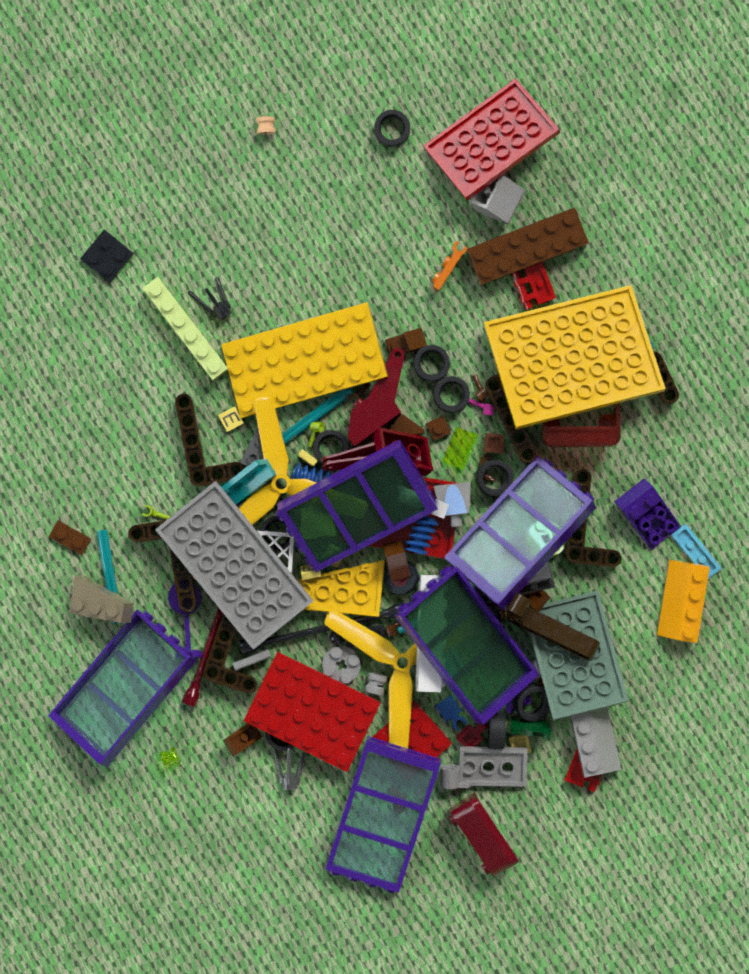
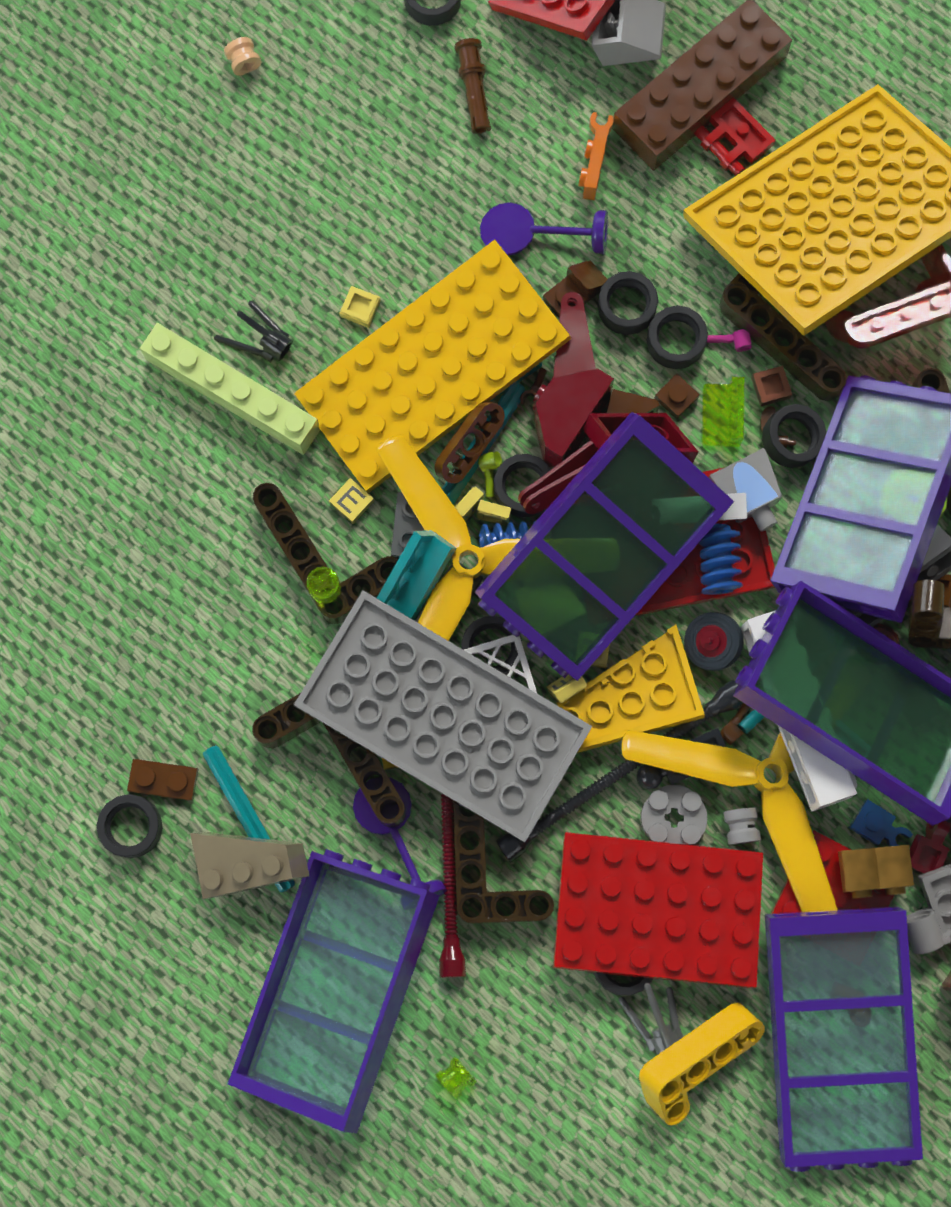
camera: 20 degrees left, 10 degrees down
(43, 542) = (108, 812): none -> black tyre
(107, 256) = (70, 329): black plate -> none
(155, 513) = (282, 690): lime hand -> none
(197, 468) = (318, 581): none -> clear neon green wheel
(242, 739) = (562, 999): reddish brown slope -> none
(252, 659) = (528, 863): light grey tile -> none
(278, 305) = (359, 306): none -> light yellow tile
(295, 447) = (470, 503): none -> light yellow tile
(301, 796) = (695, 1058): none -> yellow beam
(306, 421) = (483, 438): none -> reddish brown beam
(382, 291) = (515, 227): none -> dark purple piece
(396, 560) = (698, 614): reddish brown slope -> none
(397, 186) = (472, 73): none -> reddish brown pin
(437, 735) = (876, 869): none -> pearl gold brick
(481, 394) = (722, 318): reddish brown hand -> none

